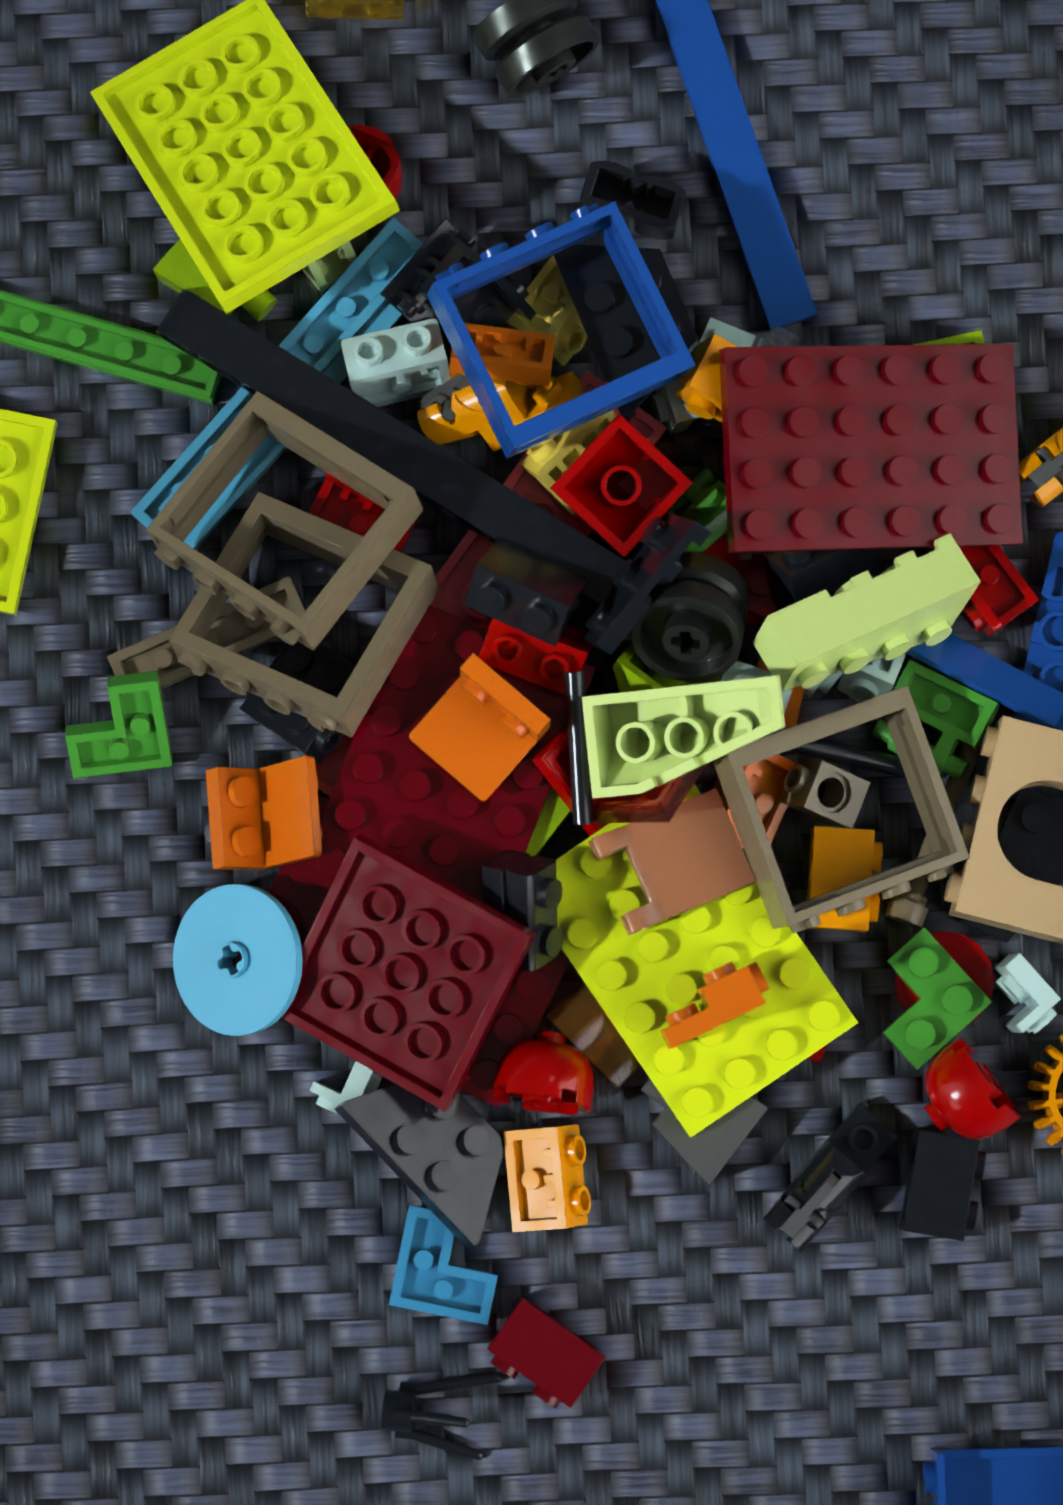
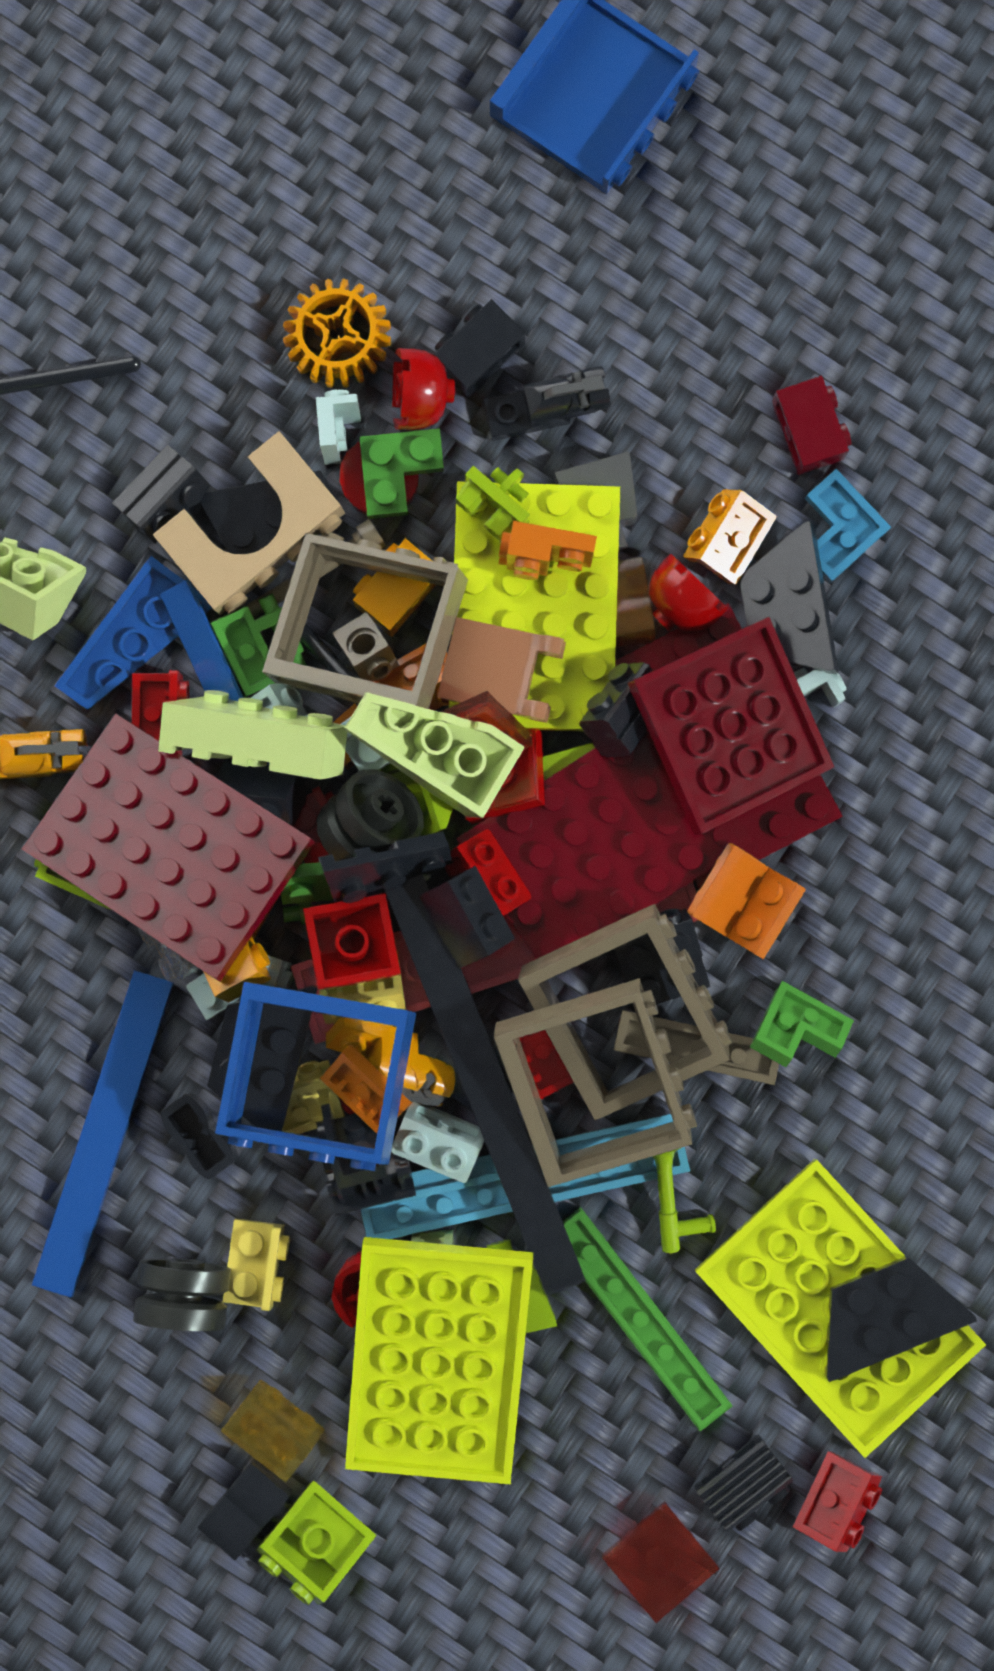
camera: 140 degrees left, 0 degrees up
(111, 446) = (670, 1227): none -> lime piece
(266, 978) = (837, 789): medium azure piece -> none
(407, 1413) = (928, 452): black plant -> none
(480, 729) = (565, 848): orange bracket -> none
(490, 122) = (255, 1263): none -> light yellow bracket
(577, 746) = (509, 788): black bar -> none
(827, 1023) = (481, 489): none -> lime hips

